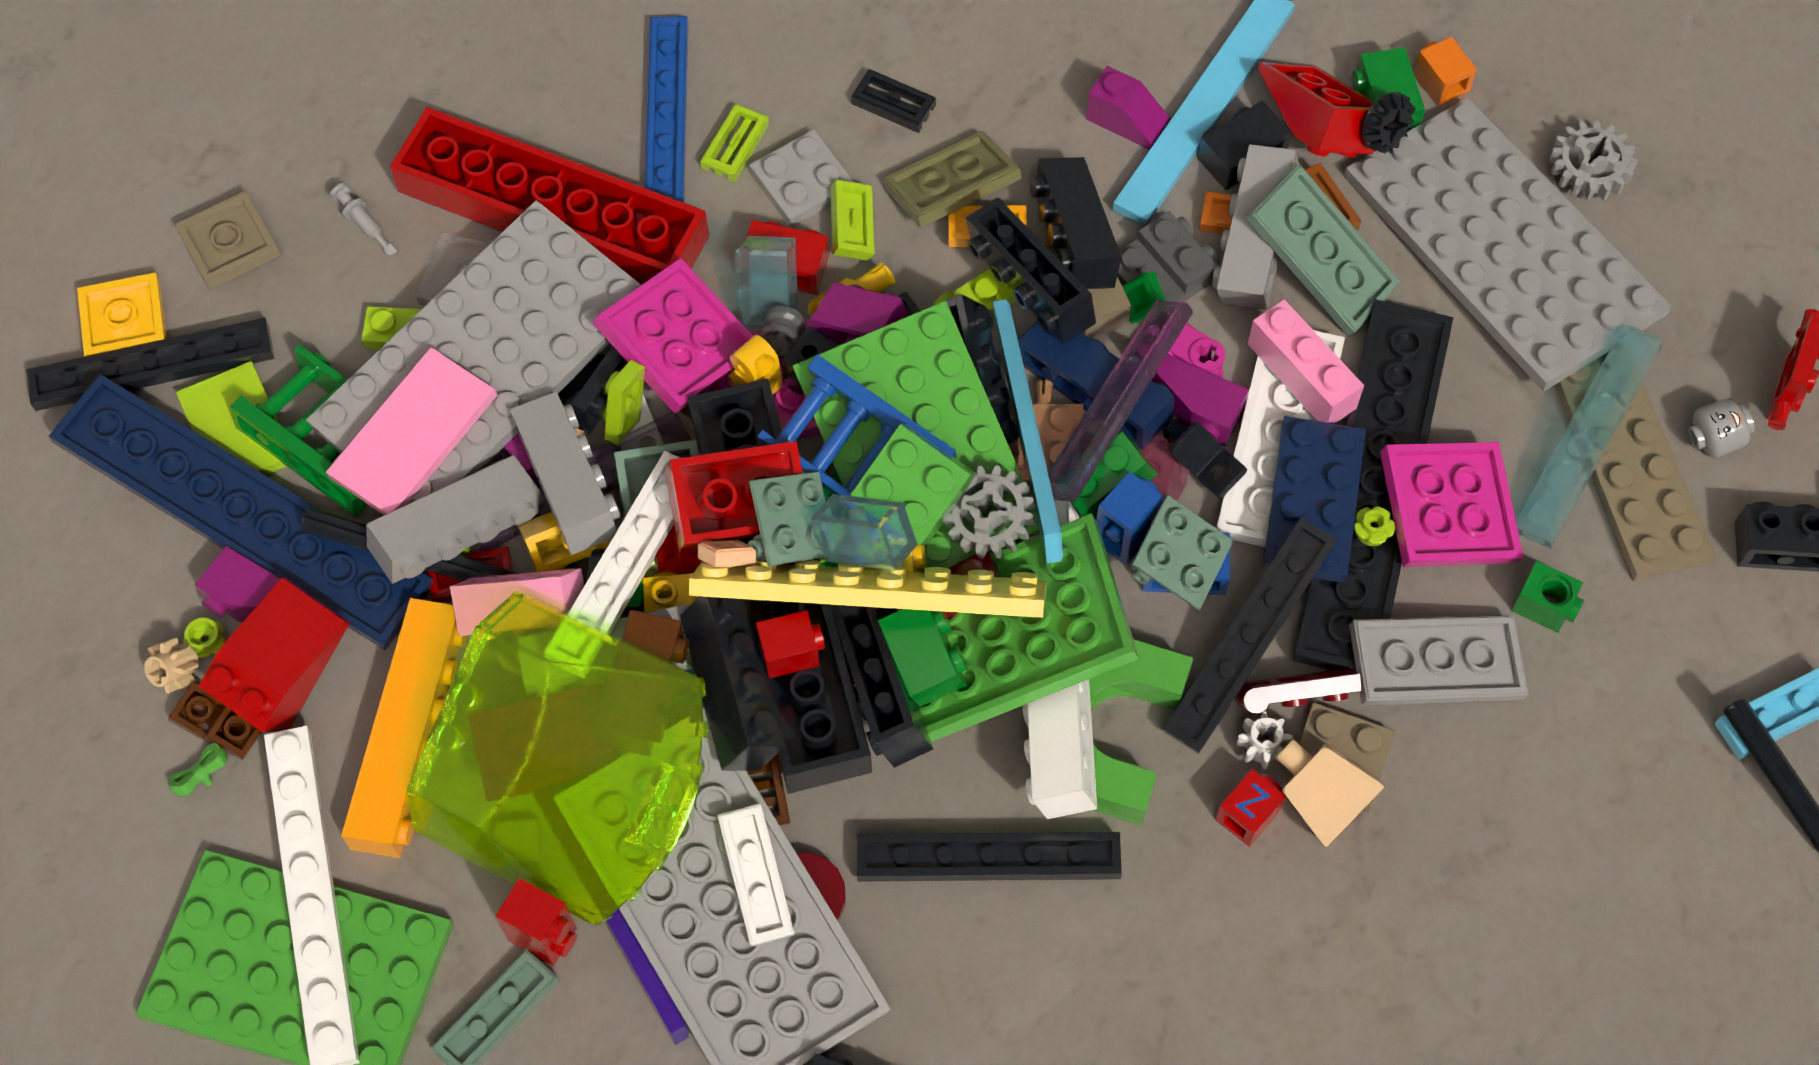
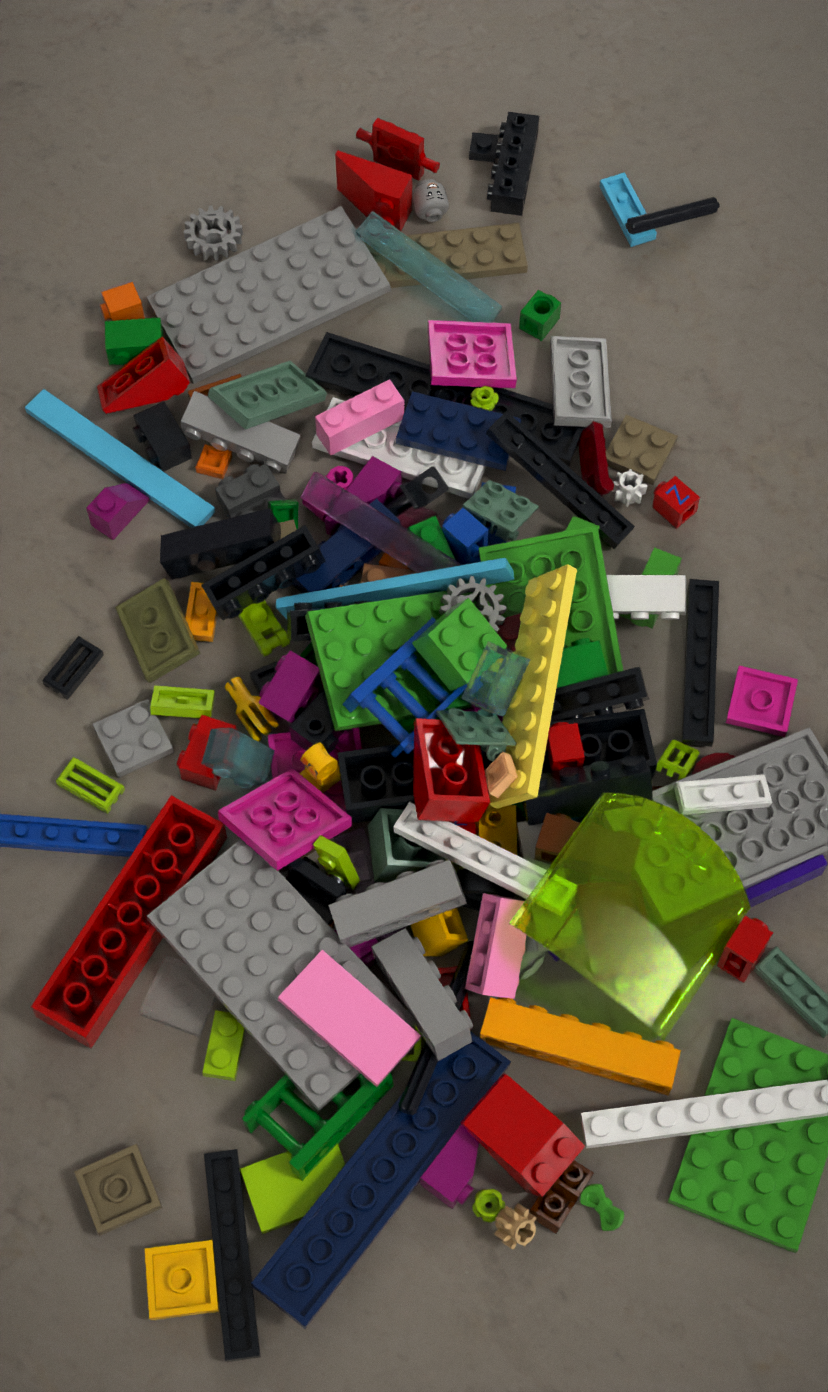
camera: 85 degrees left, 0 degrees up
(356, 210) = (112, 1078): light grey piece -> none
(783, 328) = (284, 750): dark grey wheel -> none
(793, 810) = (673, 767): none -> lime tile
(933, 945) = (761, 701): none -> dark pink plate
(1327, 788) = (672, 451): tan torso -> none
(1383, 113) = (172, 337): black gear -> none
(1707, 357) = (375, 188): none -> red slope

